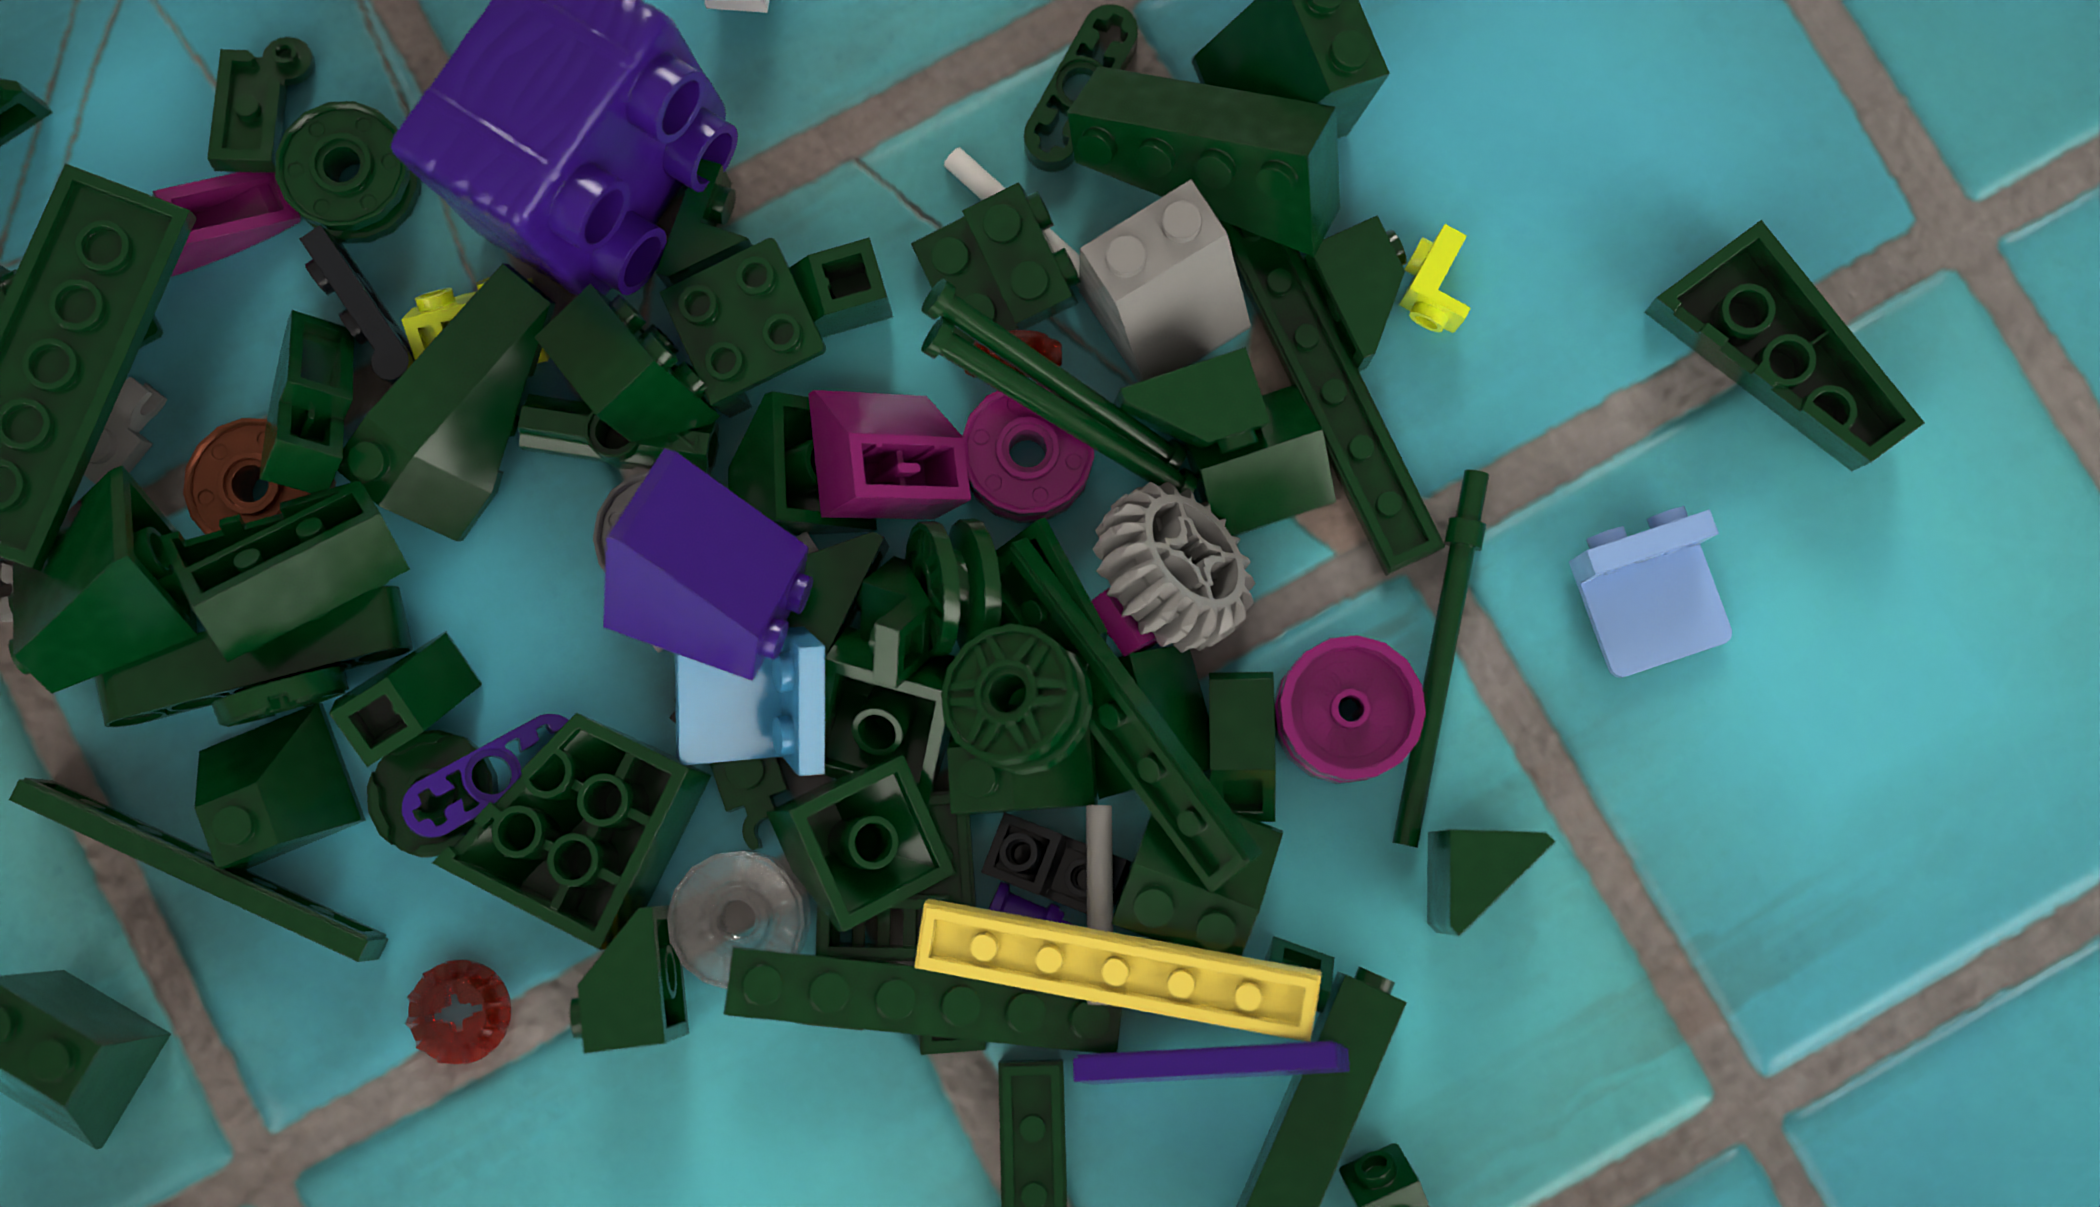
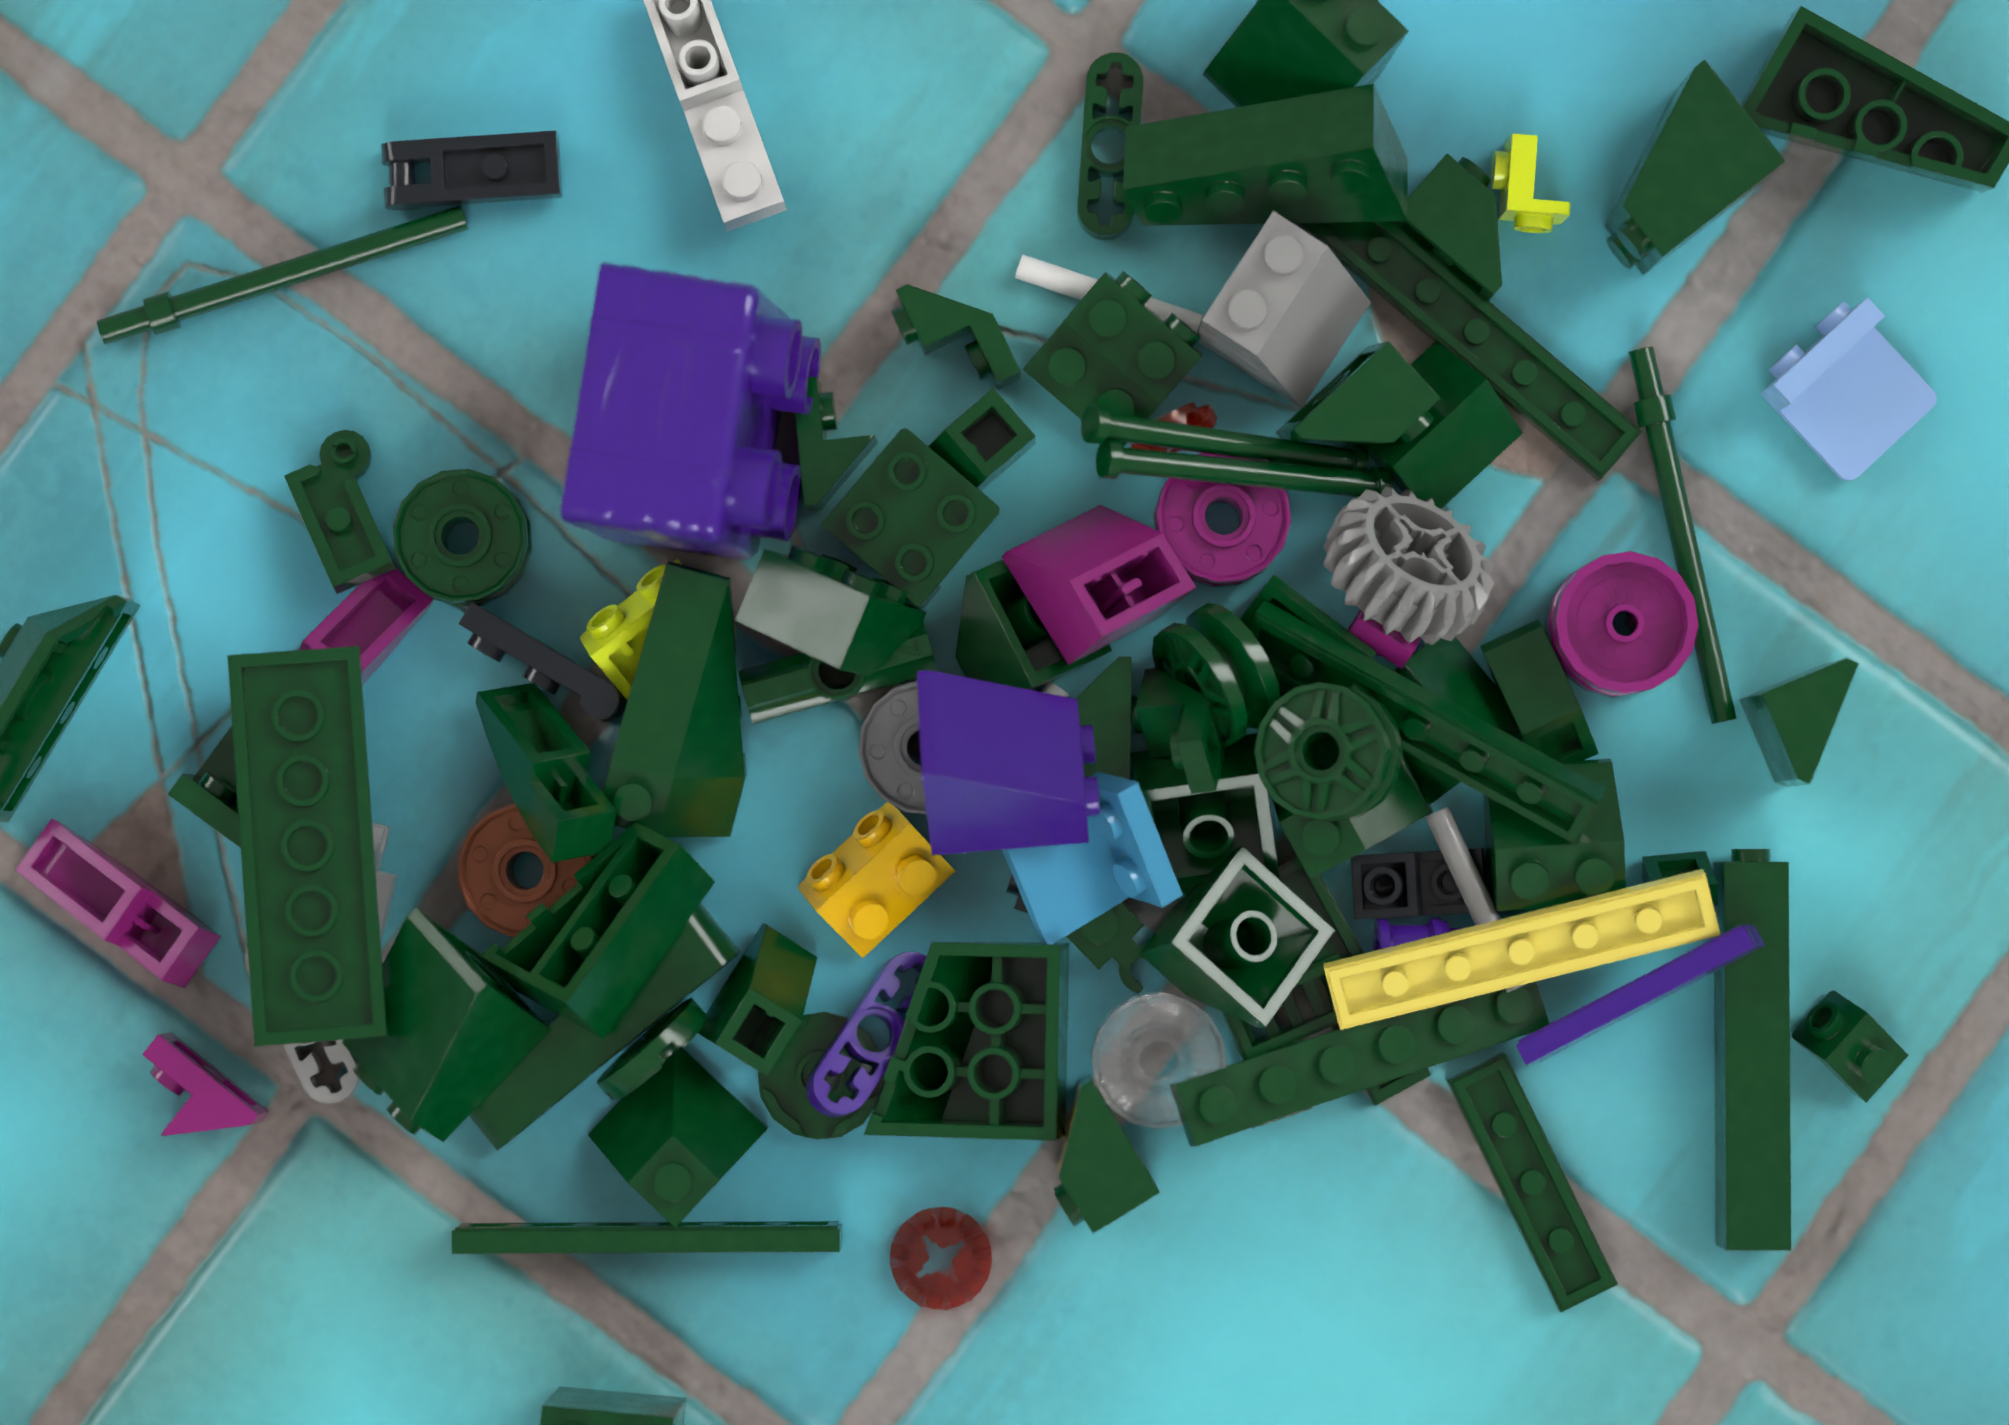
camera: 25 degrees left, 5 degrees up
(559, 640) = (874, 878): none -> yellow bracket
(861, 173) = (940, 320): none -> dark green slope
(1595, 330) = (1690, 172): none -> dark green slope

